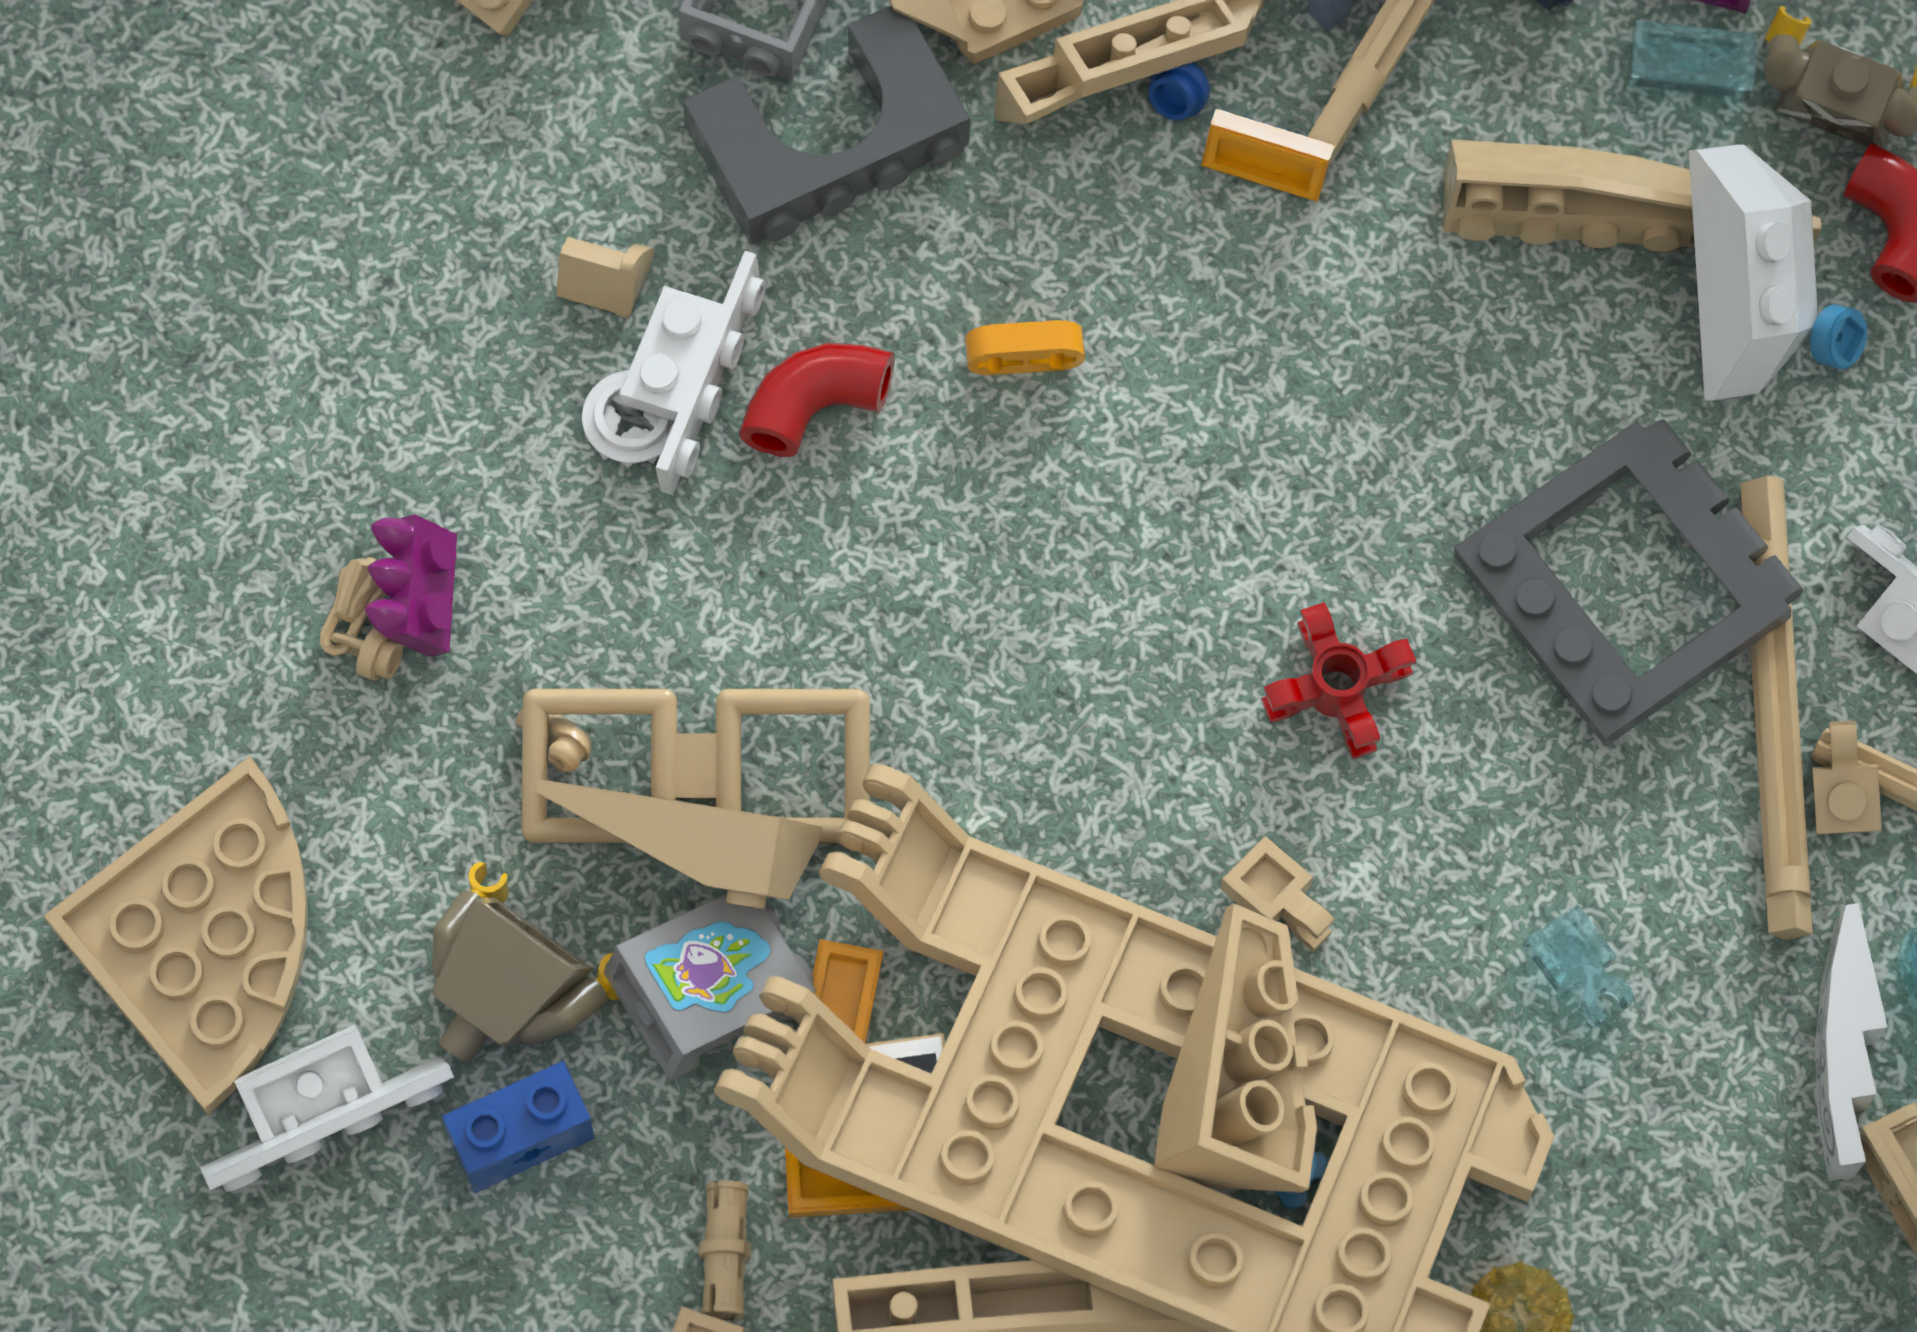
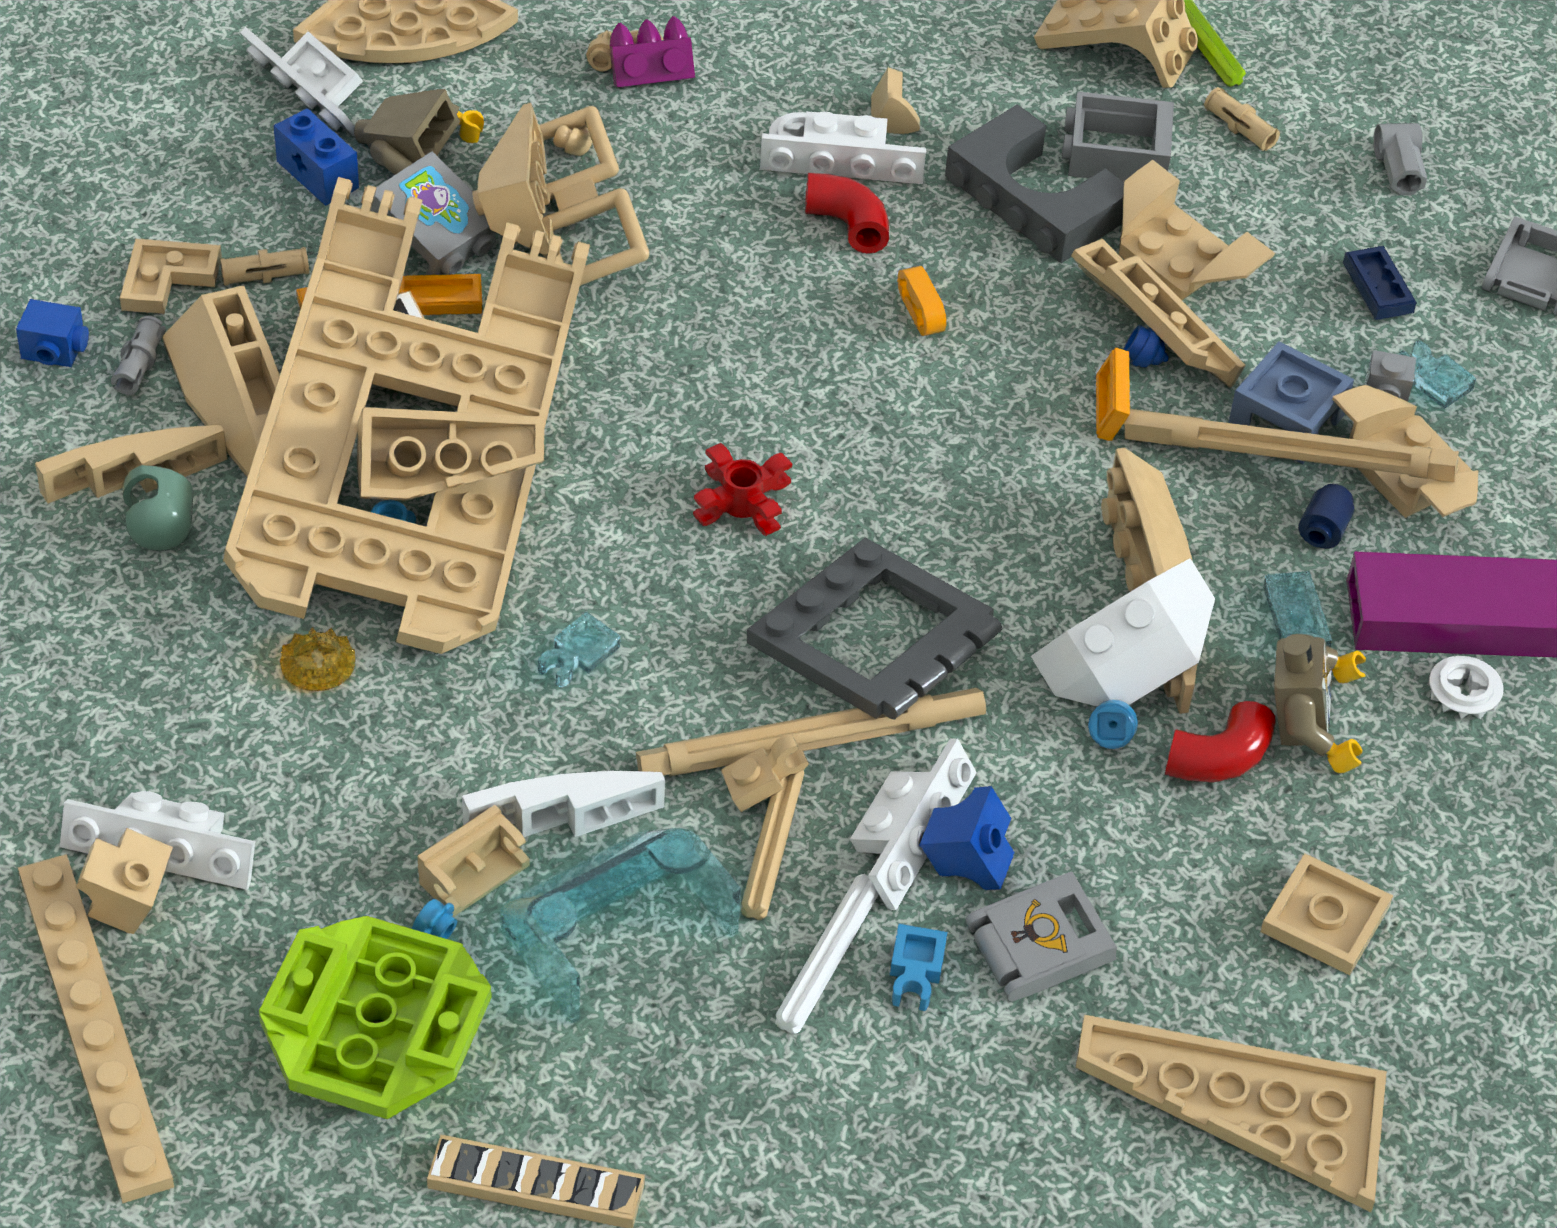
camera: 75 degrees right, 20 degrees down
(1276, 888) = (580, 480): tan plate -> none

